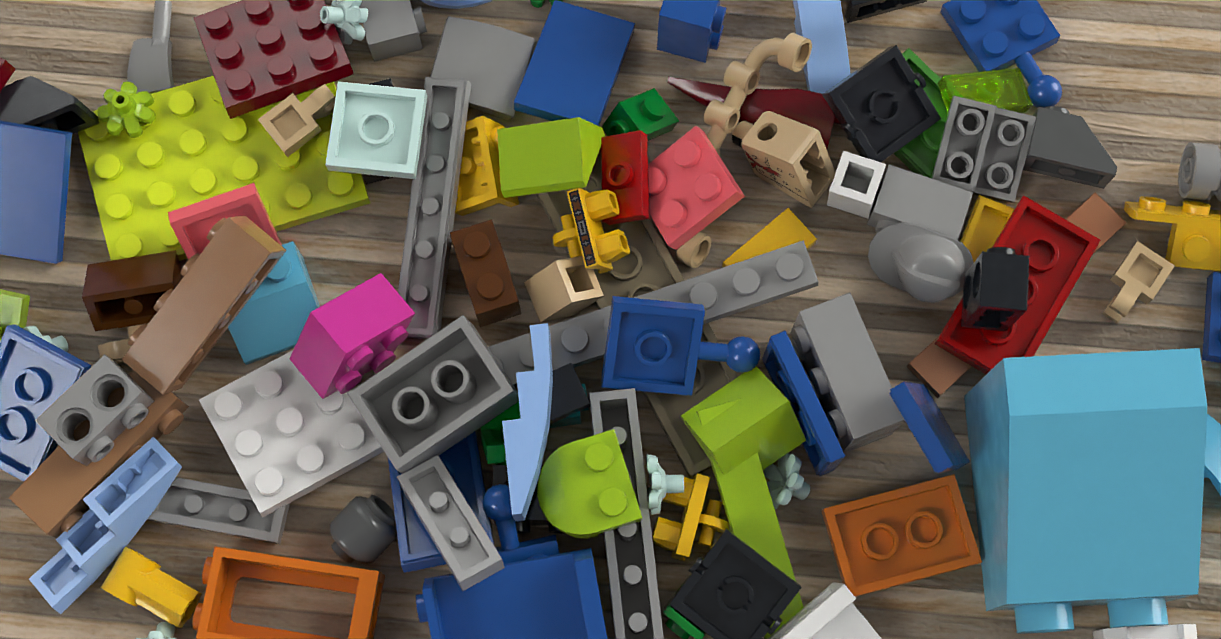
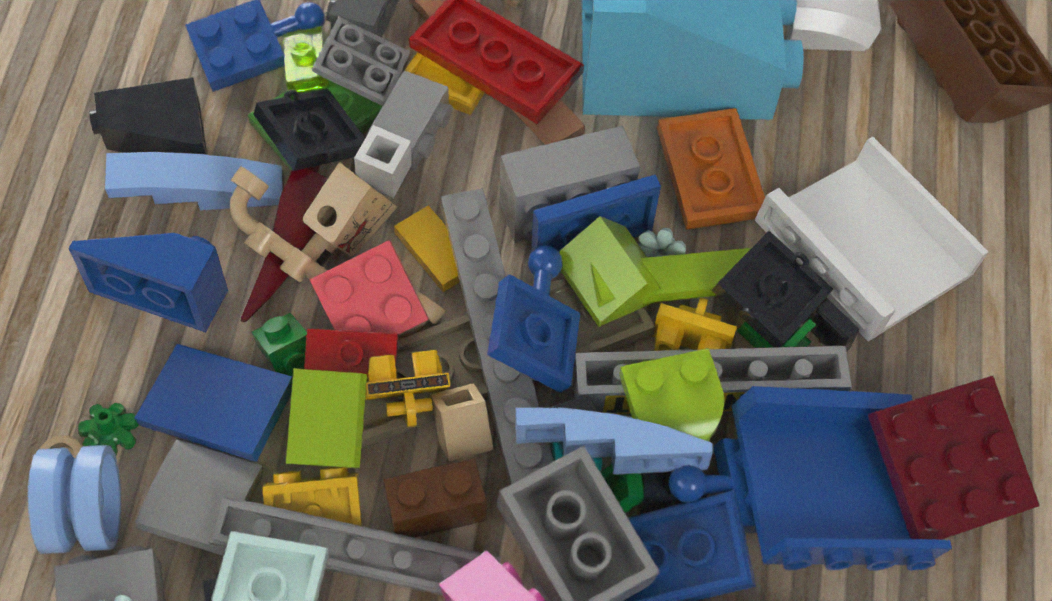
camera: 90 degrees left, 15 degrees down
(450, 523) = (712, 526): light grey plate -> none
(660, 484) = (666, 340): light aqua plant -> none
(919, 261) = (462, 123): light grey piece -> none
(929, 427) = (635, 111): blue tile -> none
(995, 290) = (505, 50): black brick -> none

